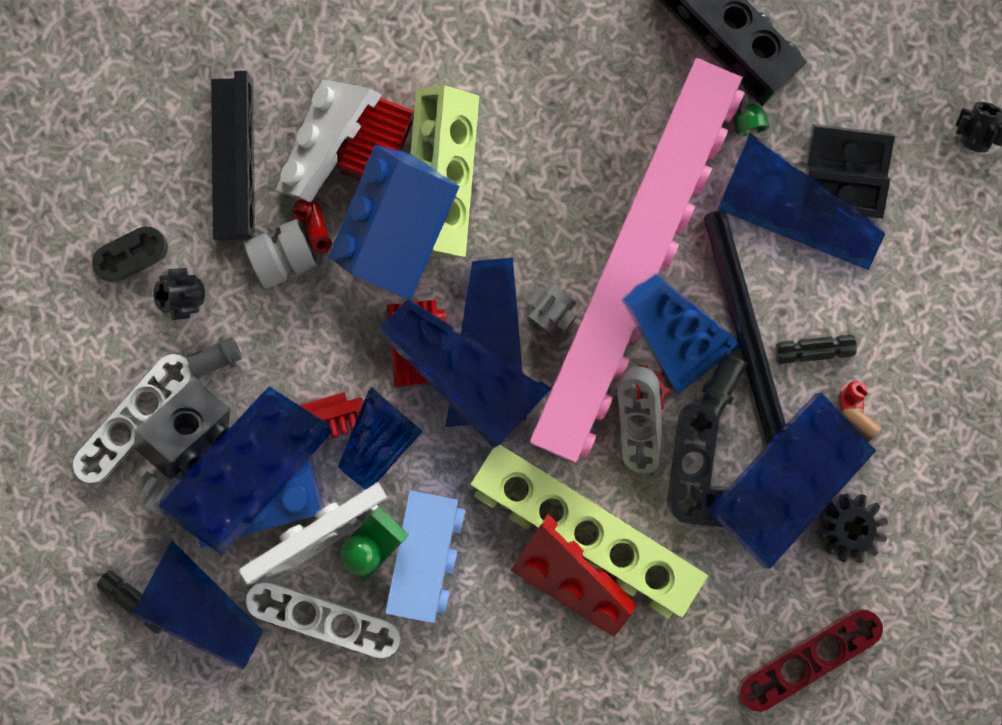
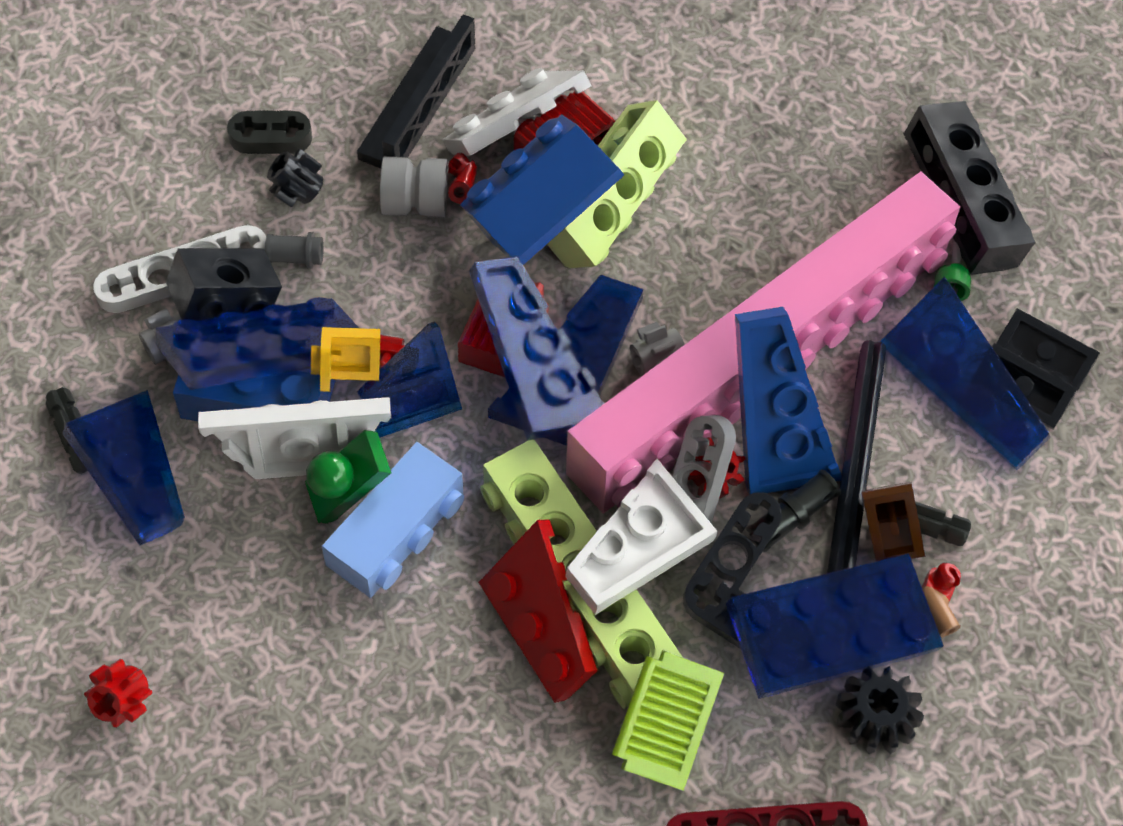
camera: 20 degrees right, 25 degrees down
(320, 454) = (346, 355): none -> yellow bracket
(322, 624) = (258, 534): white beam -> none
(623, 494) = (640, 541): none -> white wing
(706, 617) = (667, 718): none -> lime window
(796, 368) = (893, 521): none -> reddish brown slope

